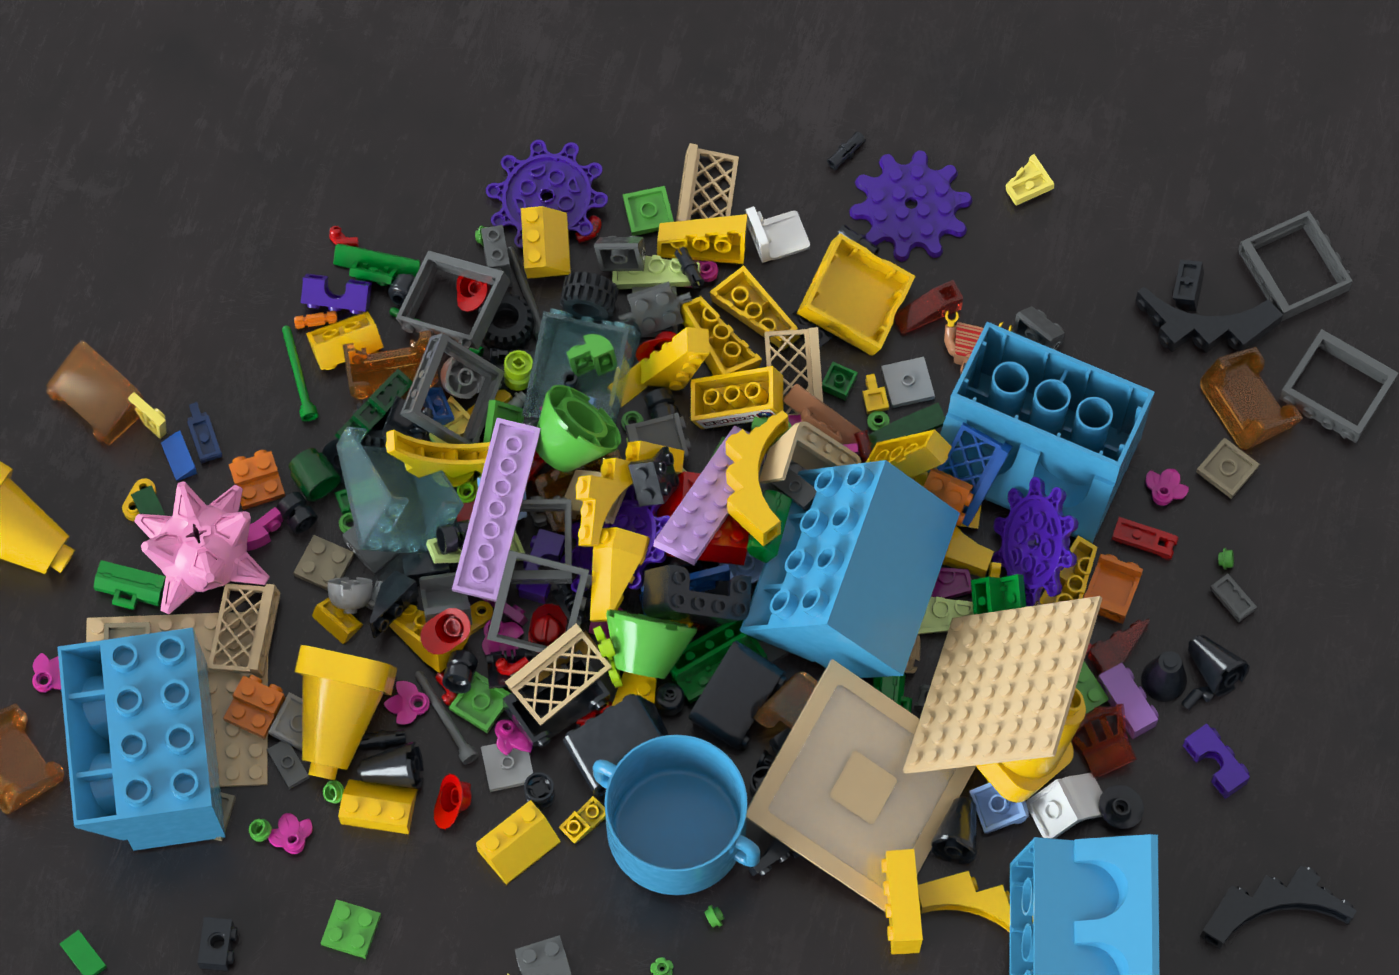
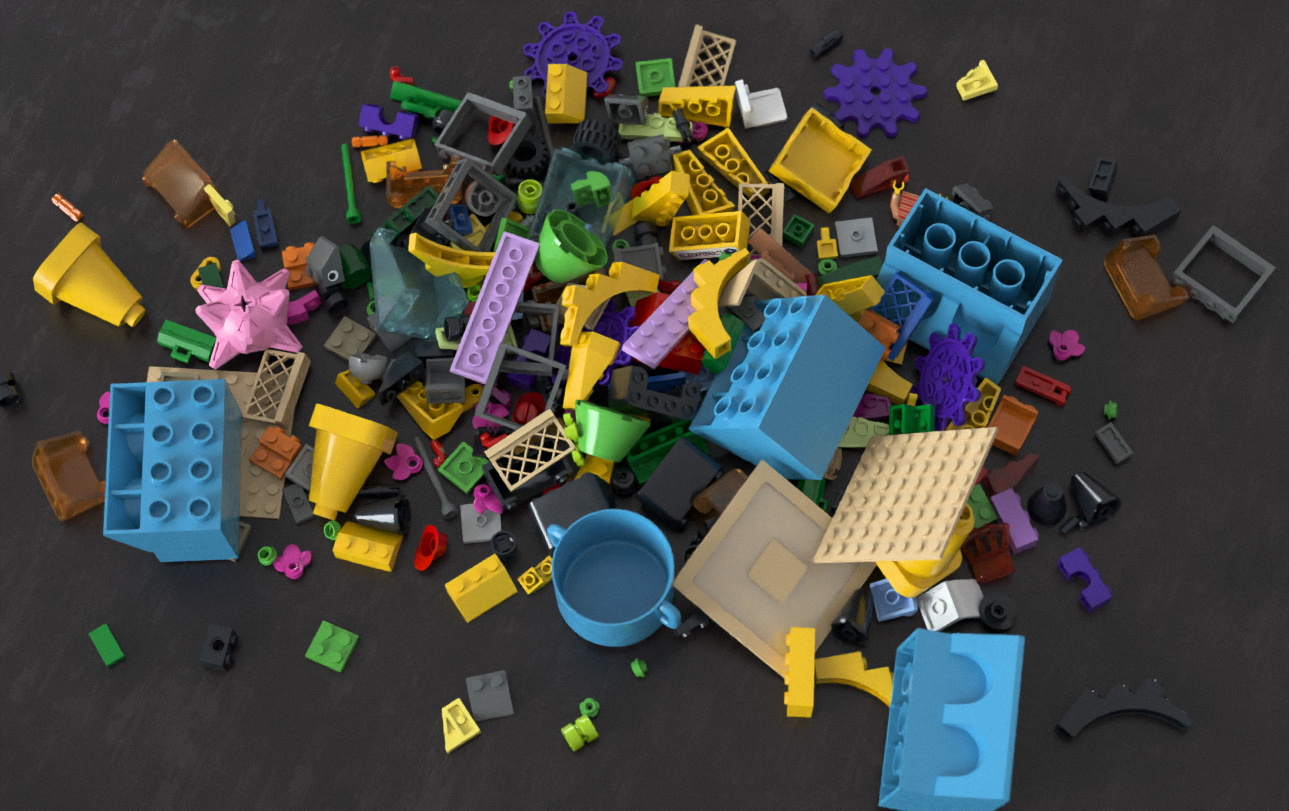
camera: 10 degrees right, 0 degrees up
(285, 474) = (324, 263): none -> dark grey slope
(445, 631) = (440, 405): red piece -> none
(460, 671) = (450, 440): black wheel -> none
(654, 478) = (630, 294): black bracket -> none
(696, 463) = (668, 287): none -> red arm
(1227, 468) = (1120, 334): dark tan plate -> none
(1323, 245) = (1219, 152): dark grey window -> none

